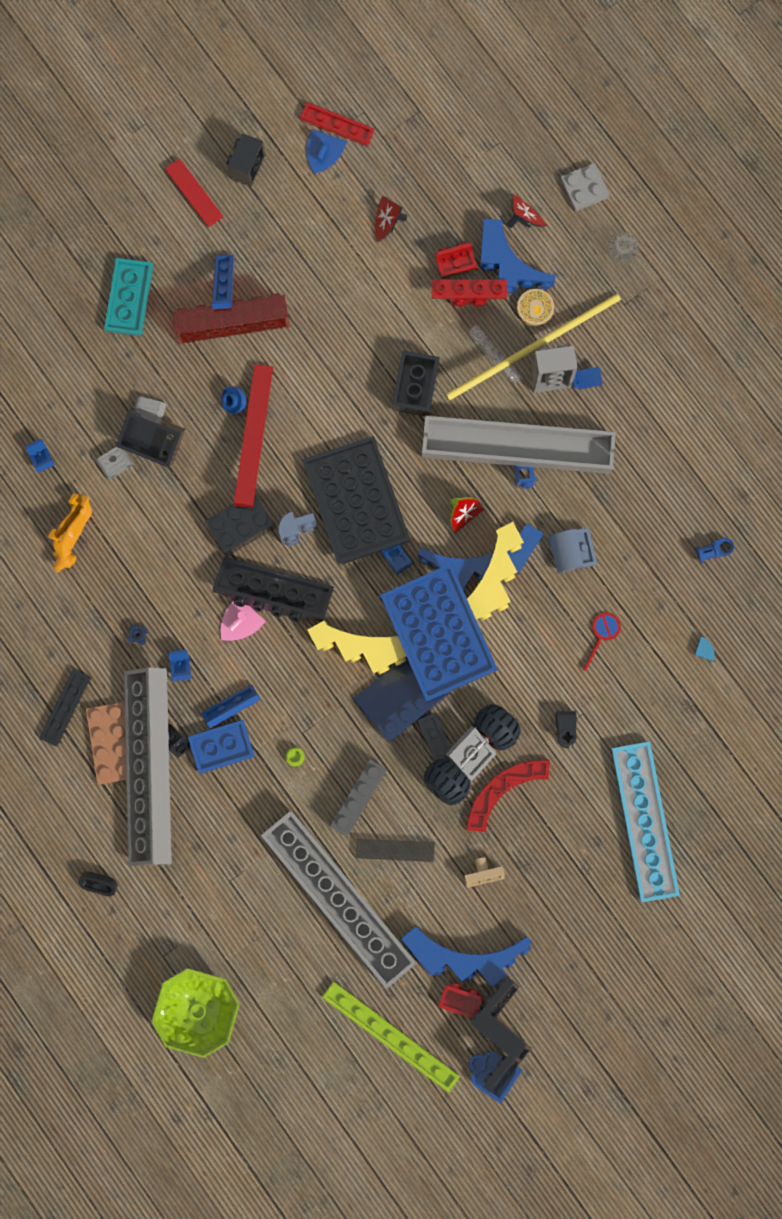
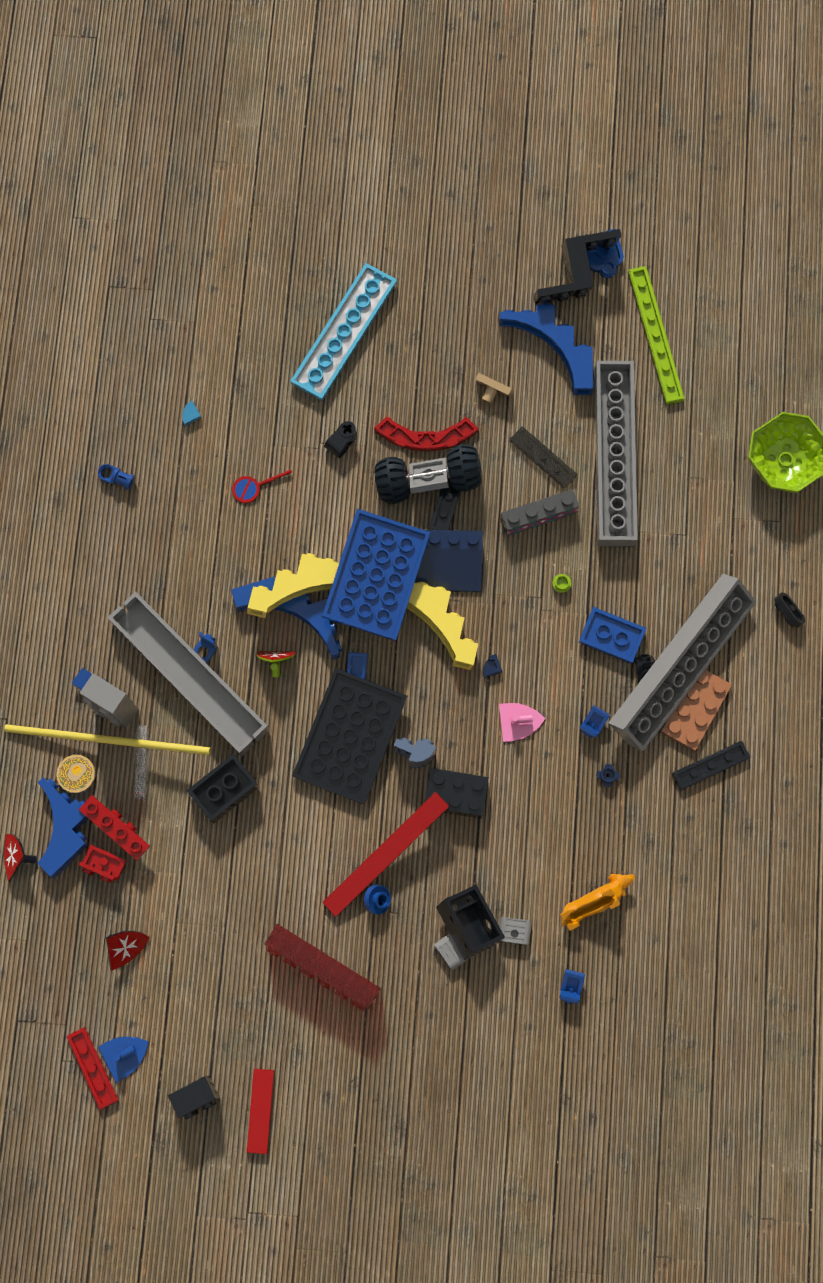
camera: 140 degrees left, 5 degrees down
(129, 297) = (389, 1063): teal plate -> none
(223, 281) = (303, 1003): blue tile -> none
(230, 706) = (580, 659): blue plate -> none
(272, 591) = (474, 719): black plate -> none
(294, 645) = (492, 667): none -> dark blue tile
(460, 1001) = (584, 316): red bracket -> none
(573, 550) = (220, 561): sand blue brick -> none

